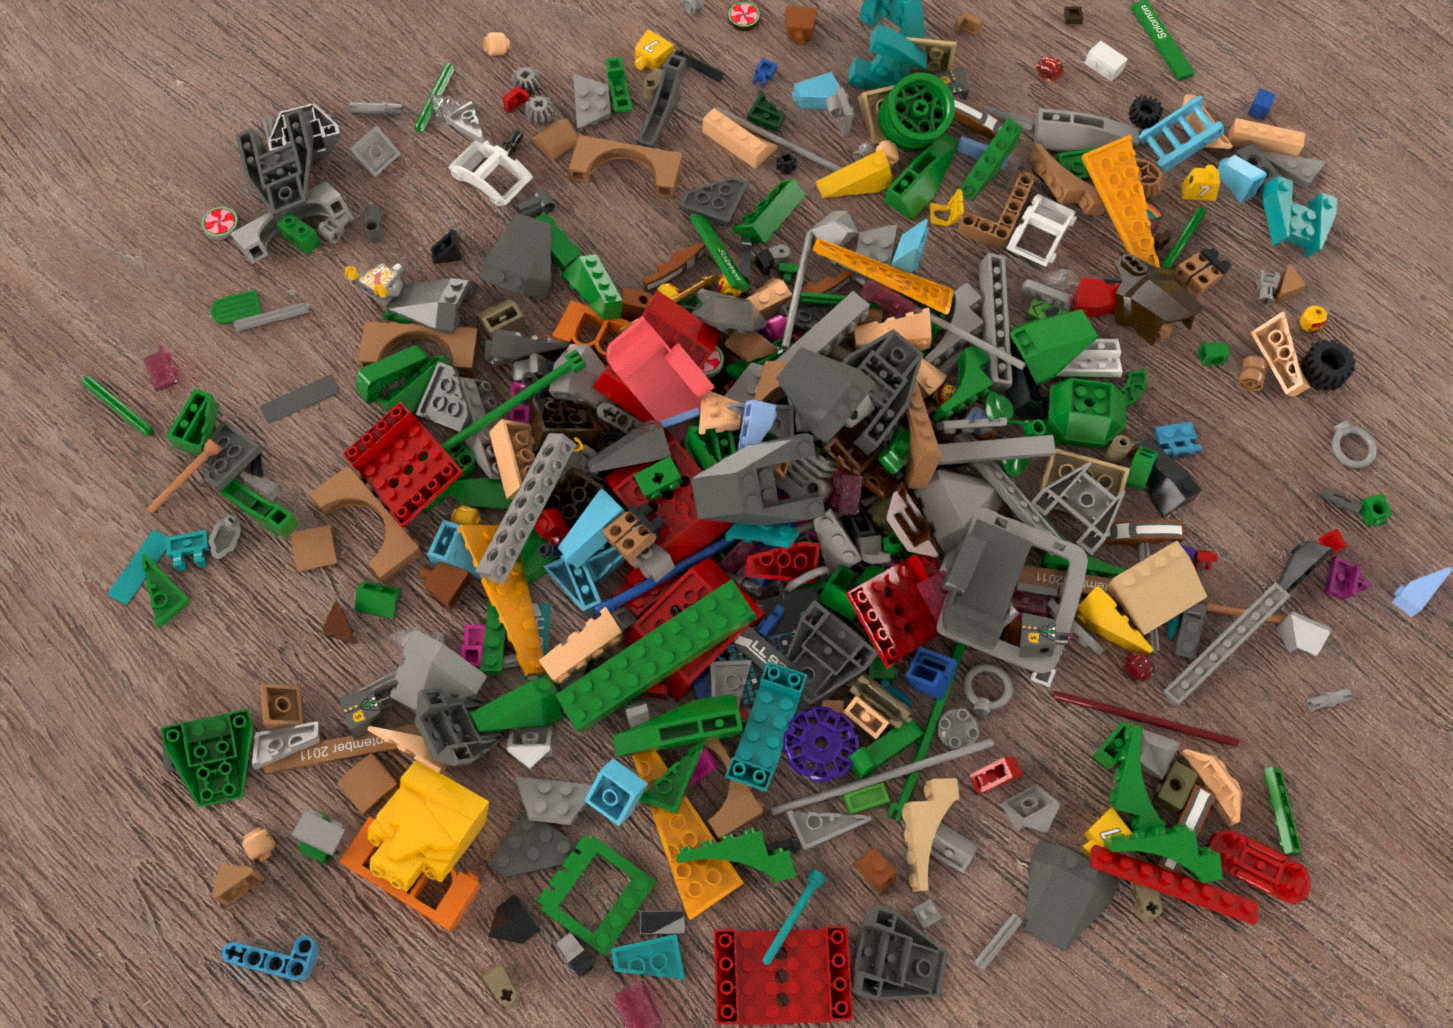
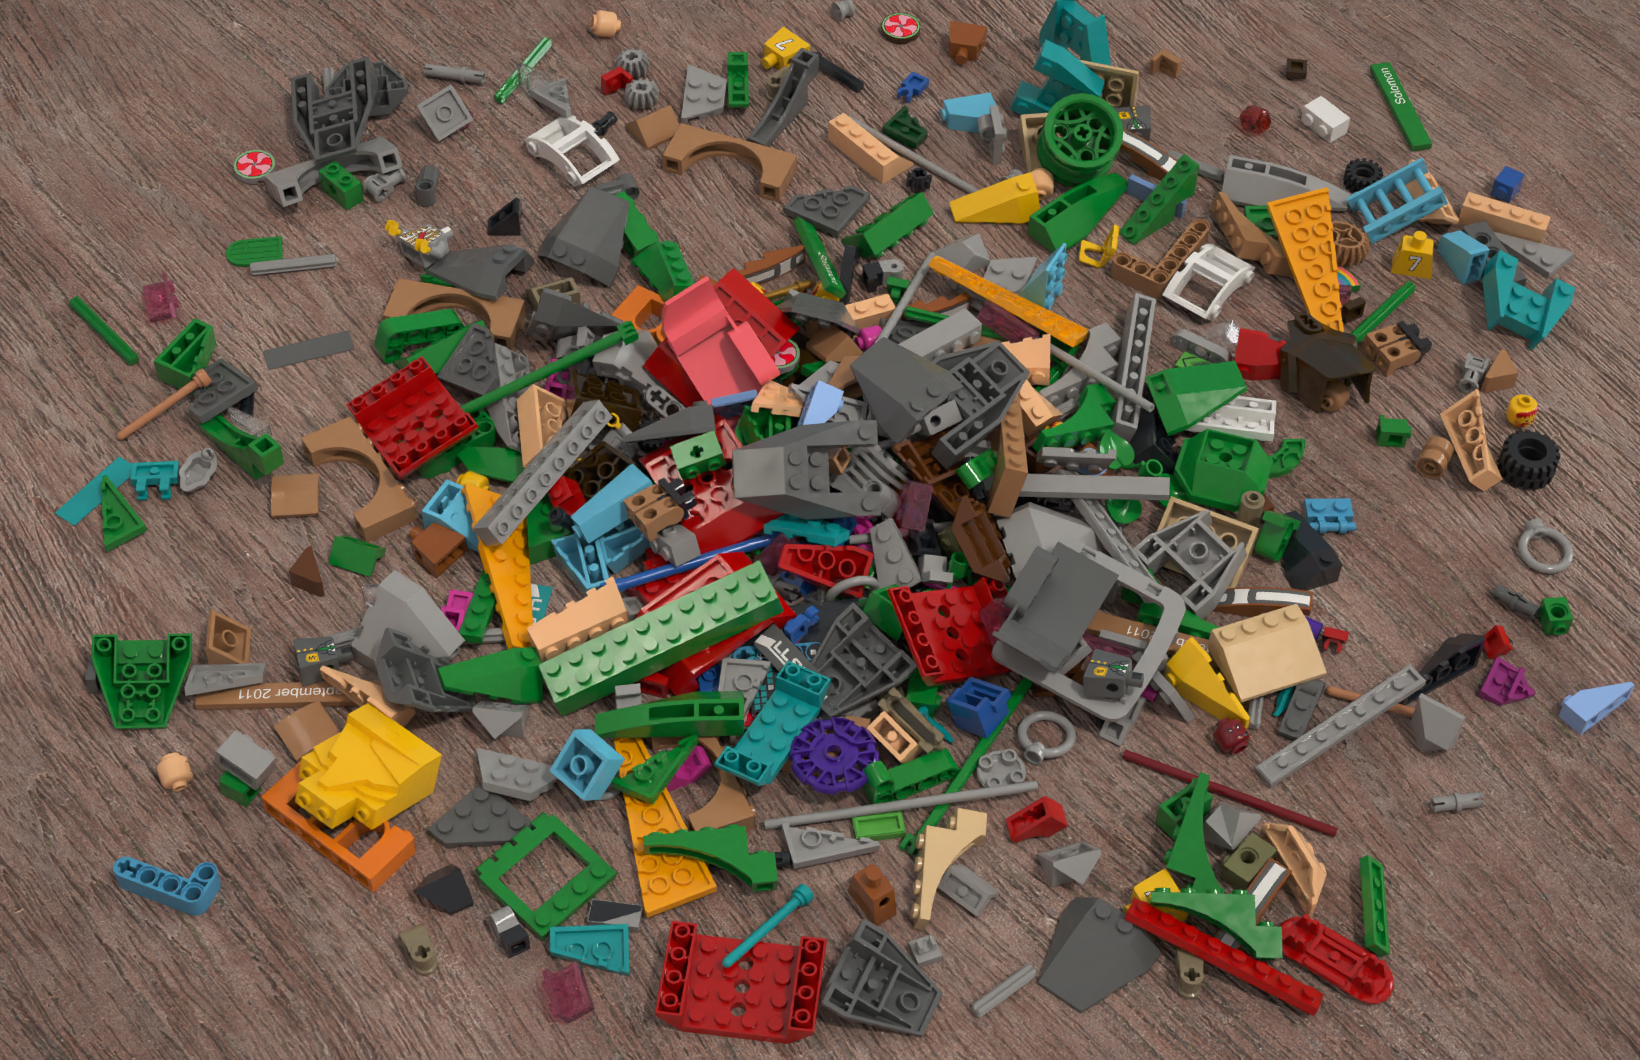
camera: 10 degrees right, 15 degrees down
(234, 882) = (143, 799): medium nougat slope -> none

